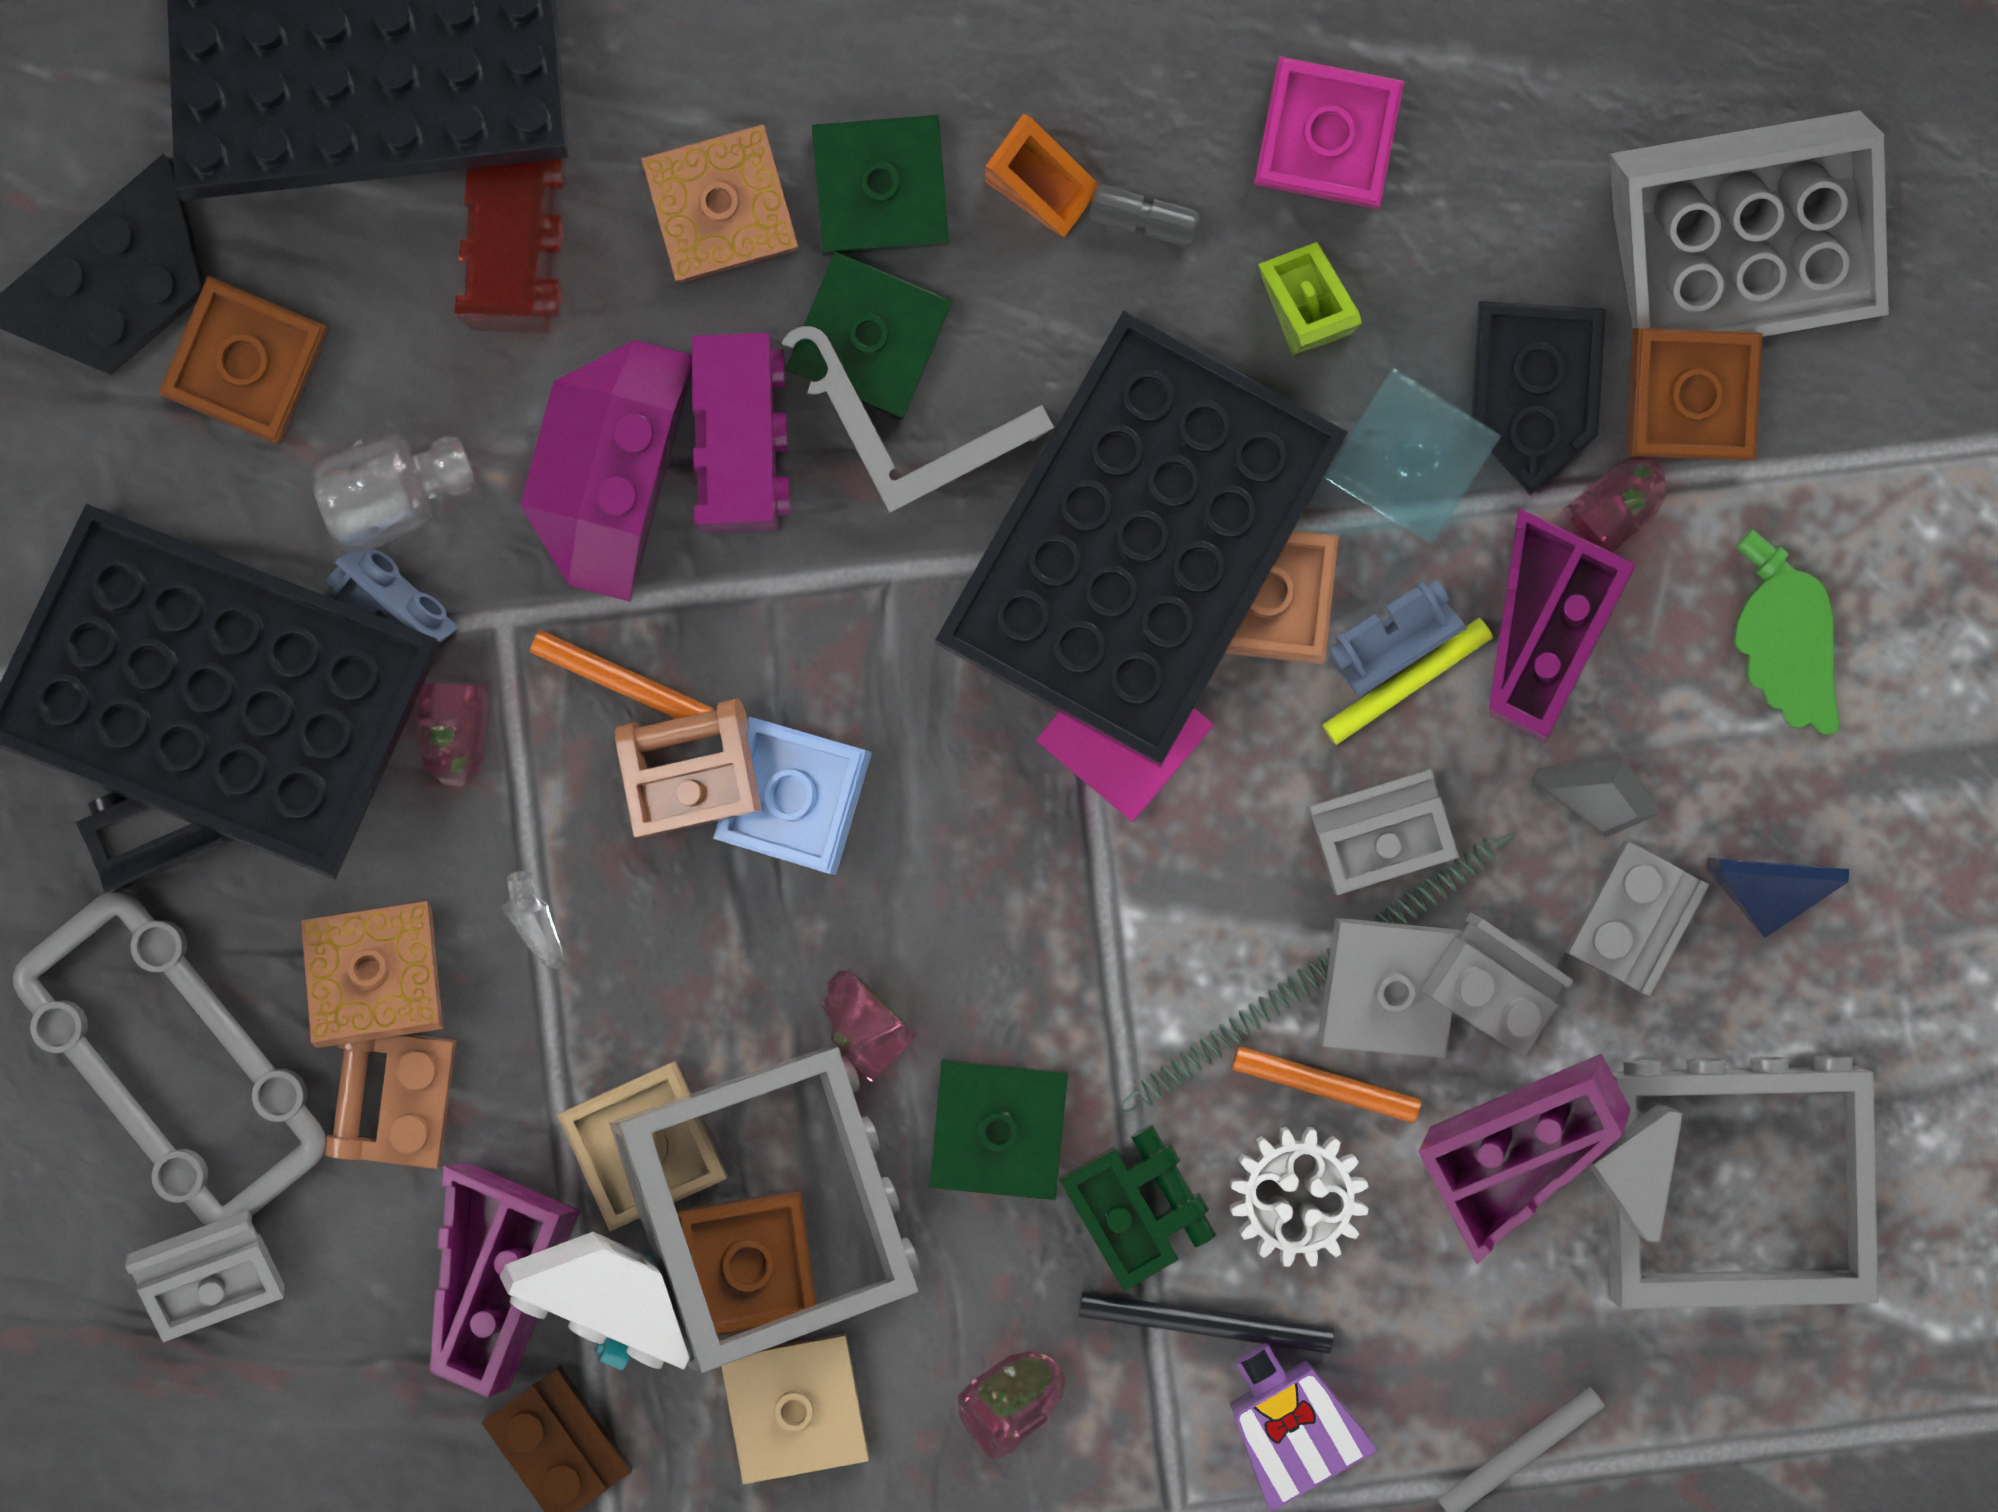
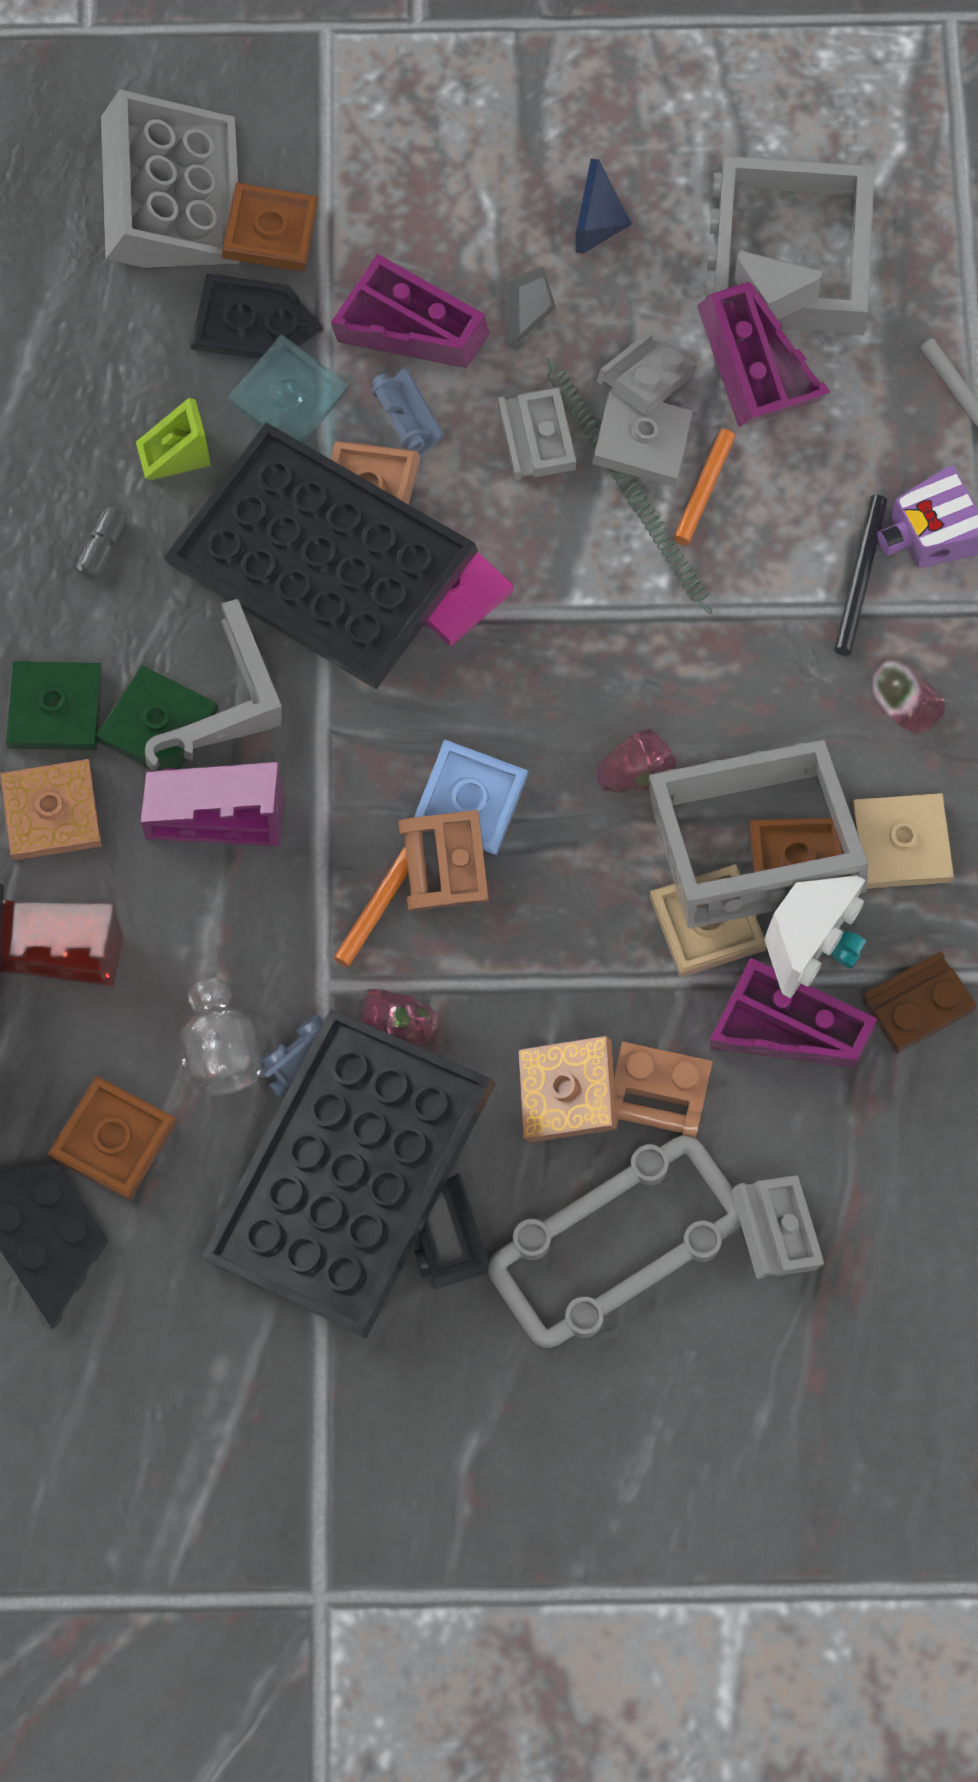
camera: 80 degrees left, 20 degrees down
(532, 920) = (539, 981): clear bar -> none
(606, 463) = (224, 896): magenta wedge -> none
(998, 1129) = (717, 691): dark green plate -> none
(1040, 177) = (63, 602): orange slope -> none
(1119, 1216) = (781, 618): dark green plate -> none
(1268, 1216) = (757, 515): white gear -> none
(1328, 133) = (64, 424): dark pink plate -> none
(1407, 681) = (452, 436): neon yellow bar -> none
(1618, 502) = (333, 275): clear pink rock -> none
(1636, 918) = (610, 293): light grey plate -> none
(1788, 638) = (436, 190): bright green animal -> none

